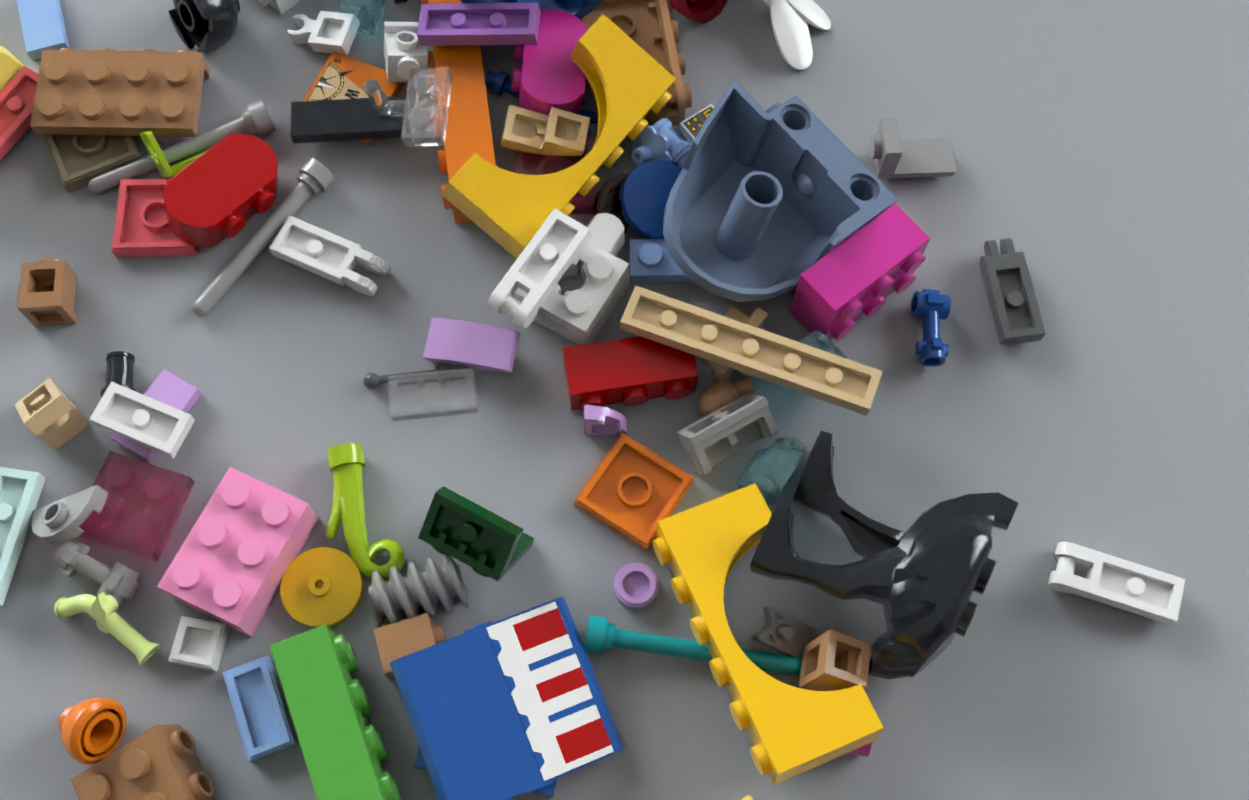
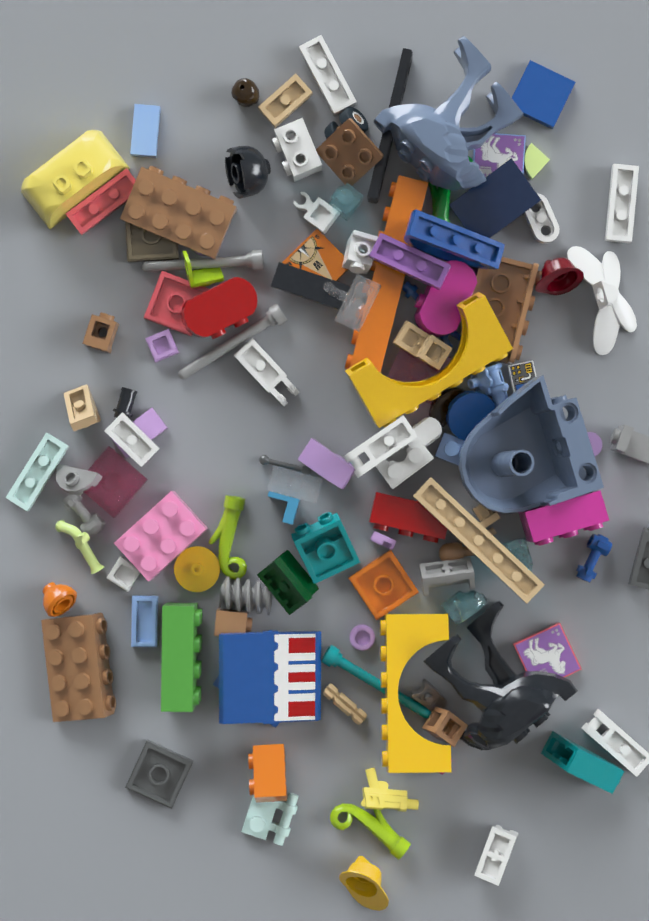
camera: 25 degrees right, 20 degrees up
(154, 280) = (162, 345): none -> lavender tile
(425, 411) = (291, 508): none -> dark azure panel
(517, 465) = (324, 547): none -> teal plate
(653, 706) = (344, 704): none -> tan axle
(930, 479) = (548, 652): none -> tile
(1081, 633) = (582, 762): none -> teal slope

